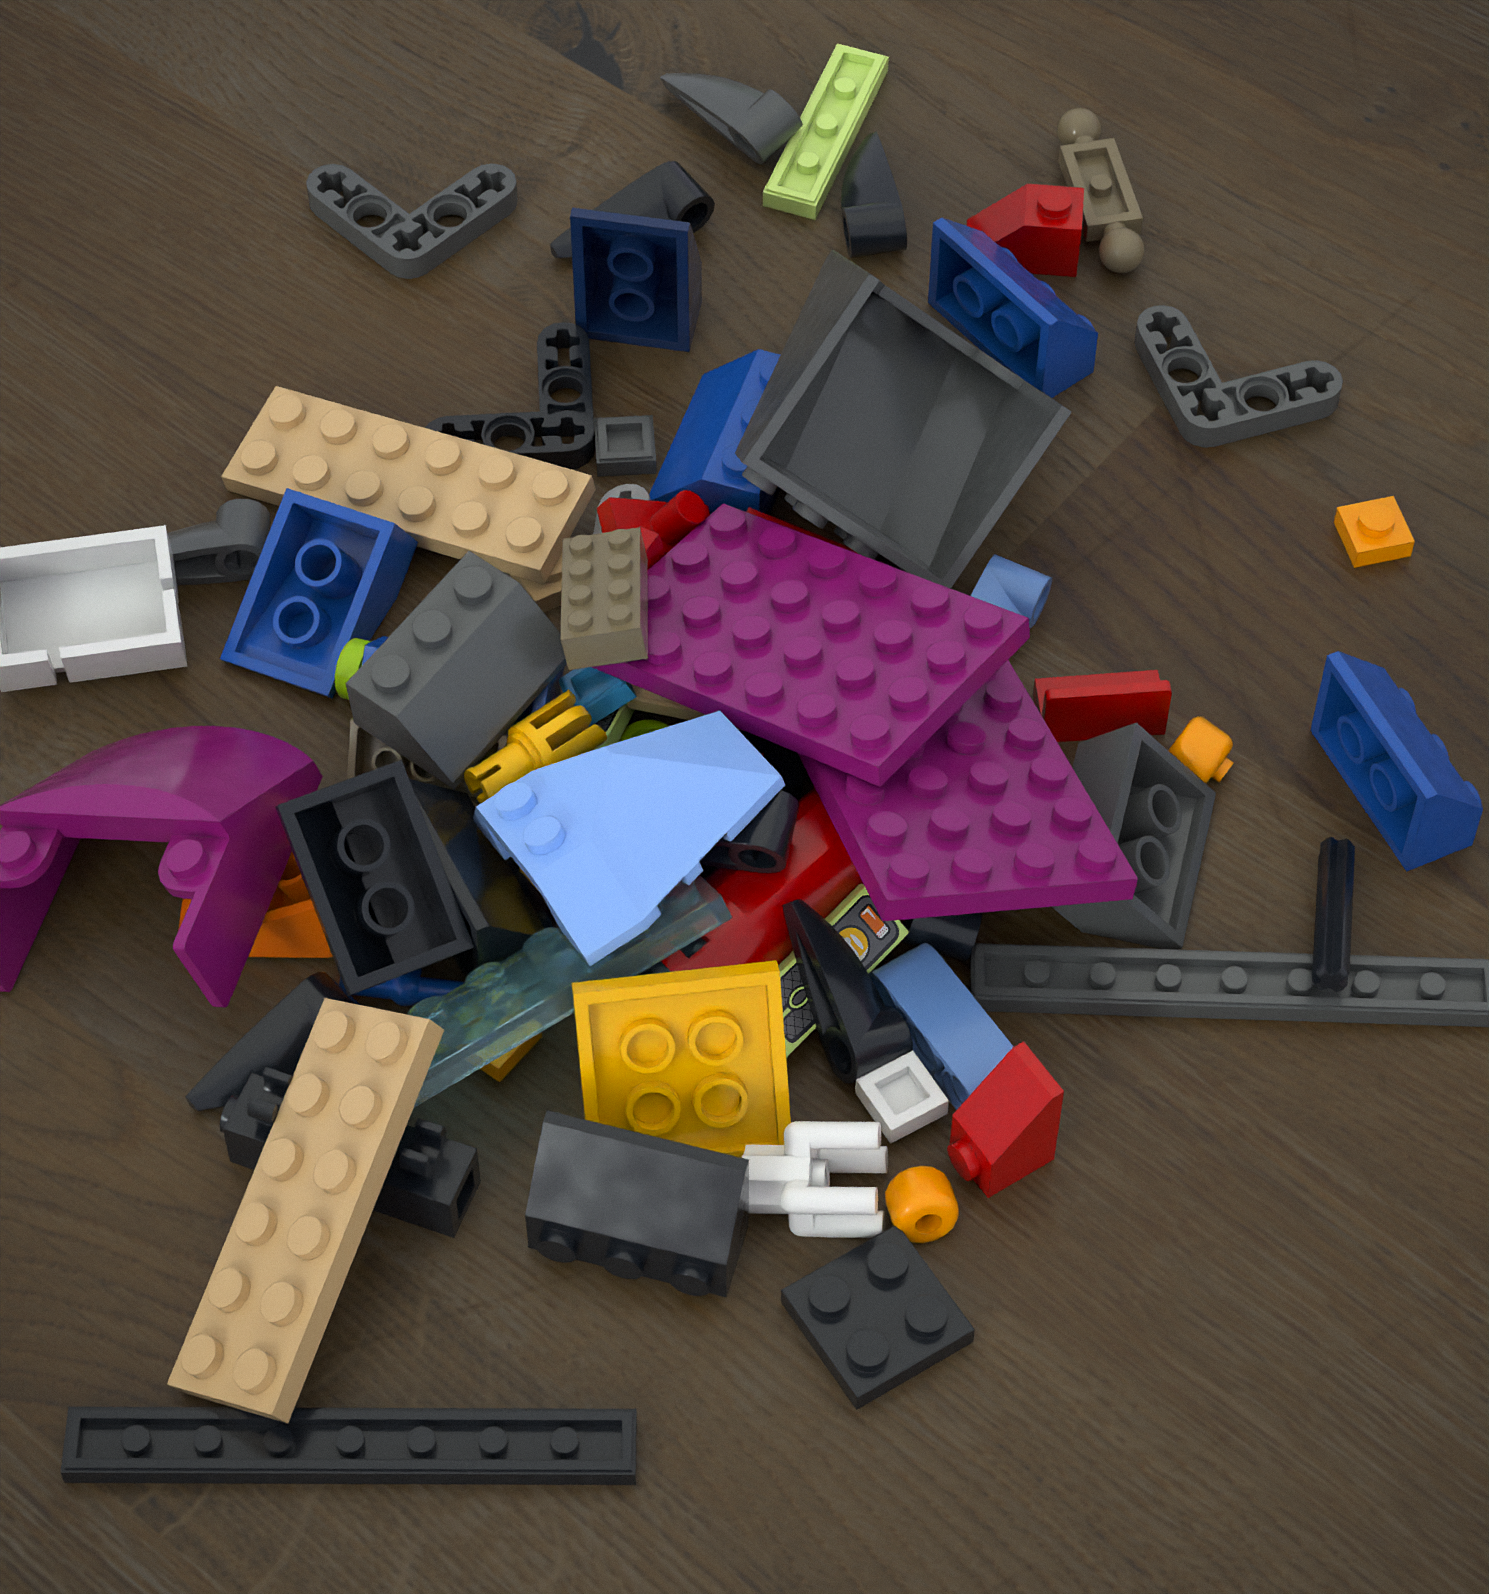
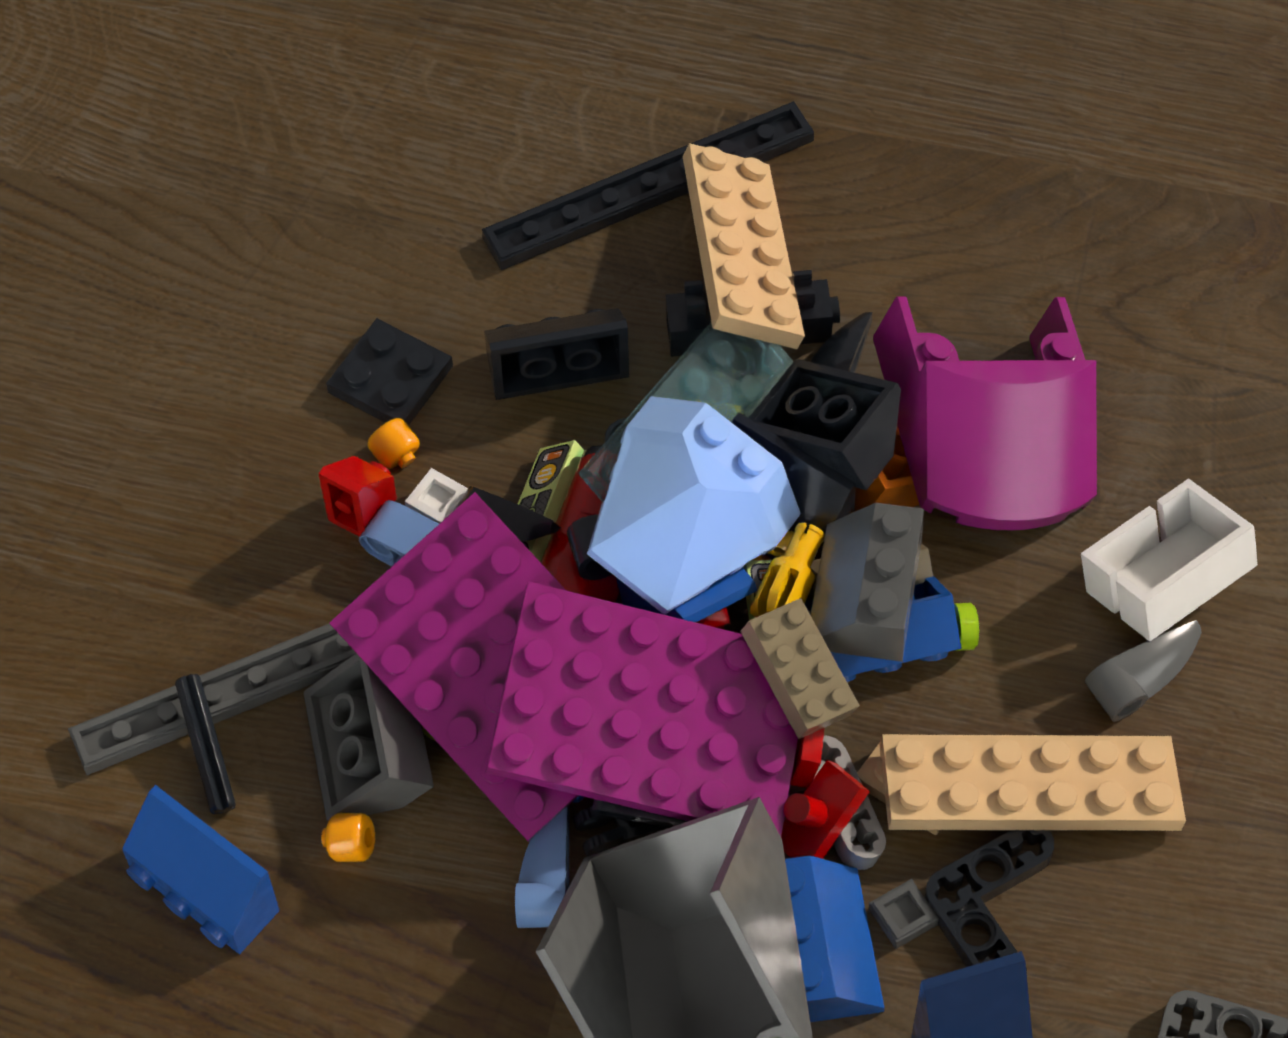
camera: 155 degrees right, 5 degrees up
(315, 588) = (1033, 672): blue slope -> none
(687, 1055) = (572, 415): yellow plate -> none
(797, 1178) = (474, 415): white plant -> none
(1100, 703) = (435, 842): red panel -> none

